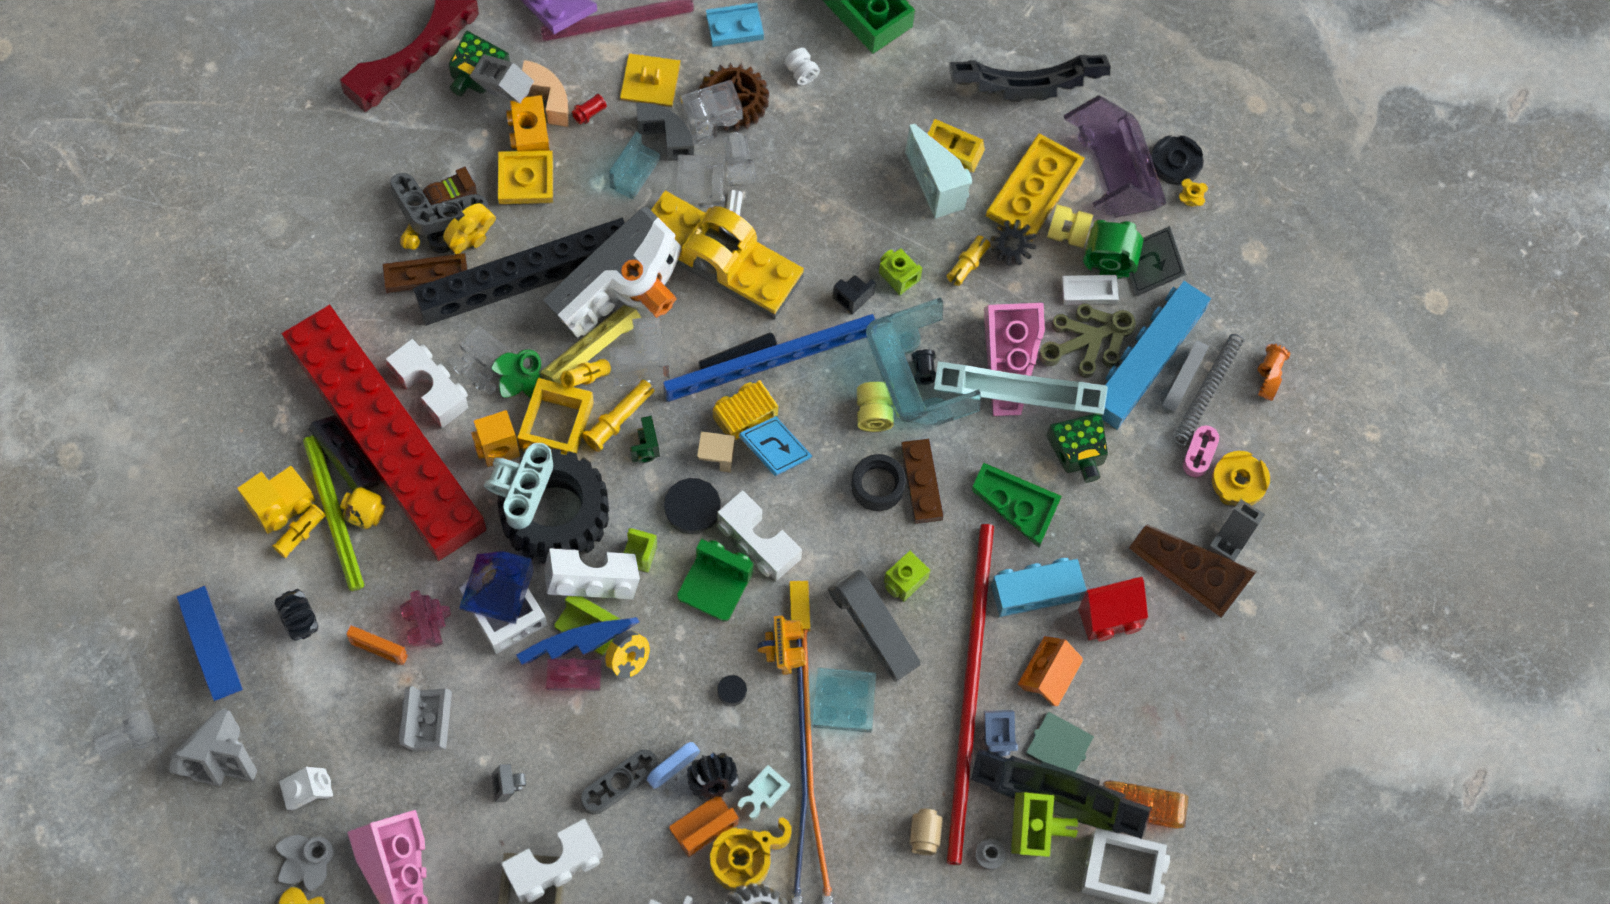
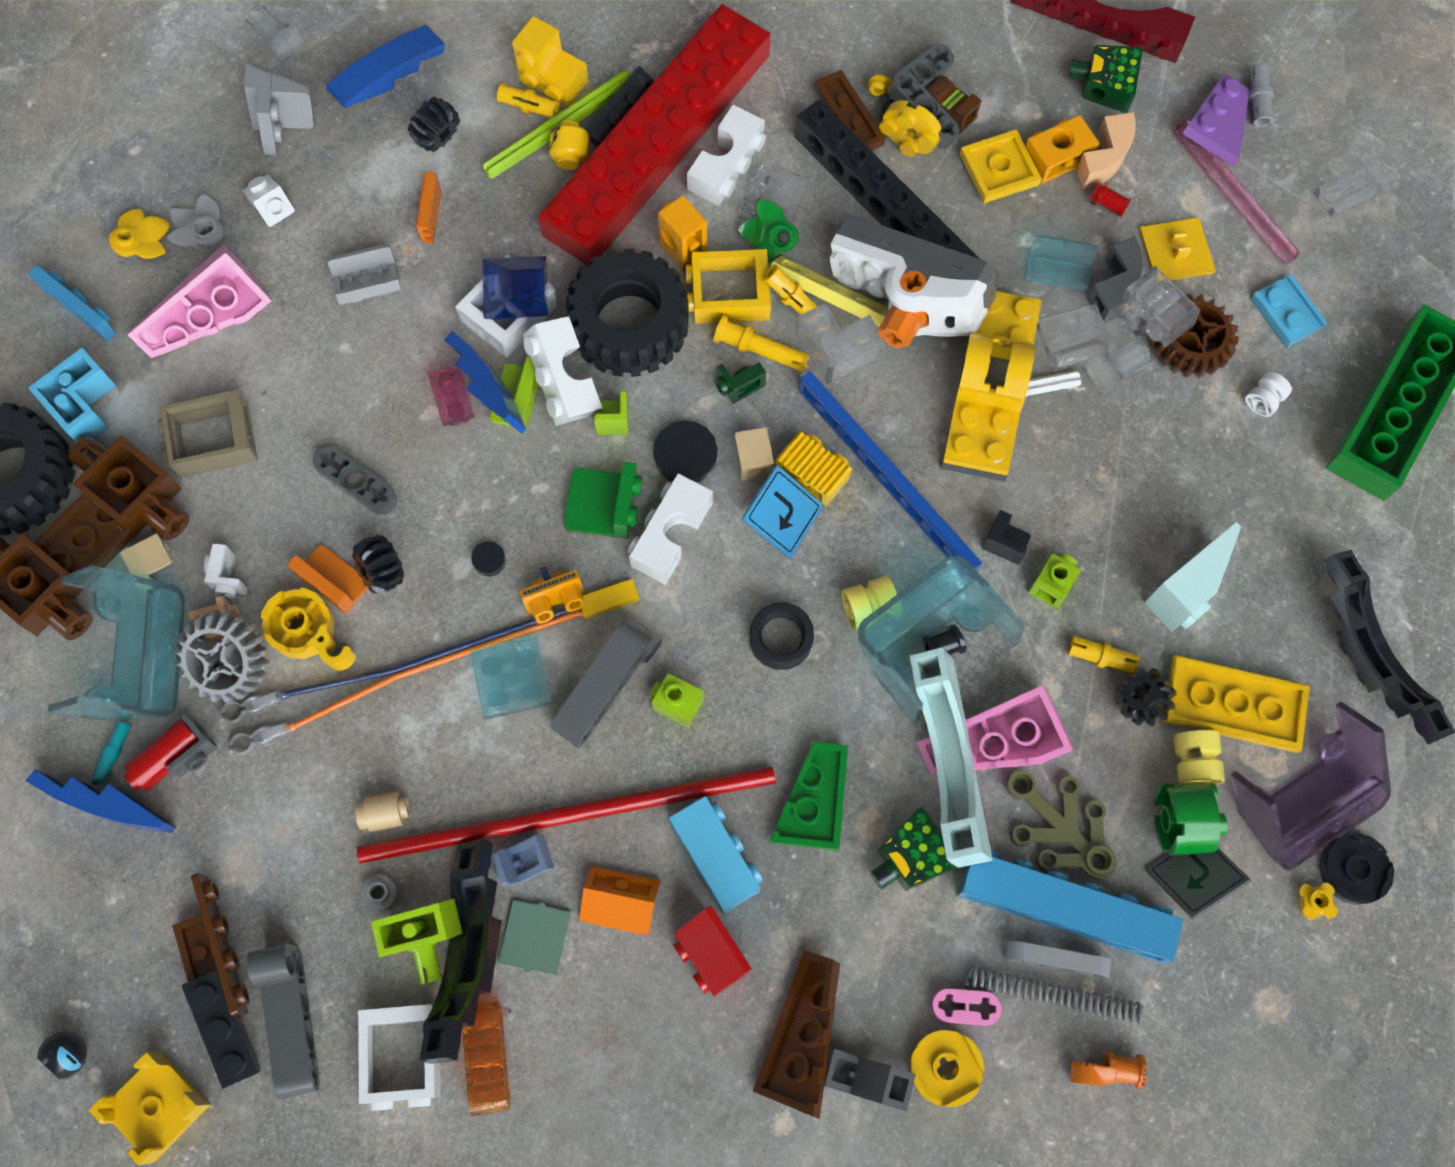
camera: 75 degrees right, 5 degrees up
(429, 617) = (470, 240): clear pink hips -> none
(502, 78) = (1095, 94): light grey brick -> none
(506, 783) = (319, 370): dark grey tile -> none
(510, 477) = (625, 250): light aqua piece -> none
(532, 877) = (214, 414): white arch -> none
(627, 654) = (498, 430): yellow piece -> none
(673, 765) = (384, 524): light blue tile -> none
(751, 346) = (891, 449): black axle -> none
(766, 790) = (384, 627): light aqua plate -> none
(922, 481) = (803, 685): reddish brown plate -> none
(959, 143) = (1243, 590): yellow brick -> none
(1089, 289) = (1127, 809): white tile -> none

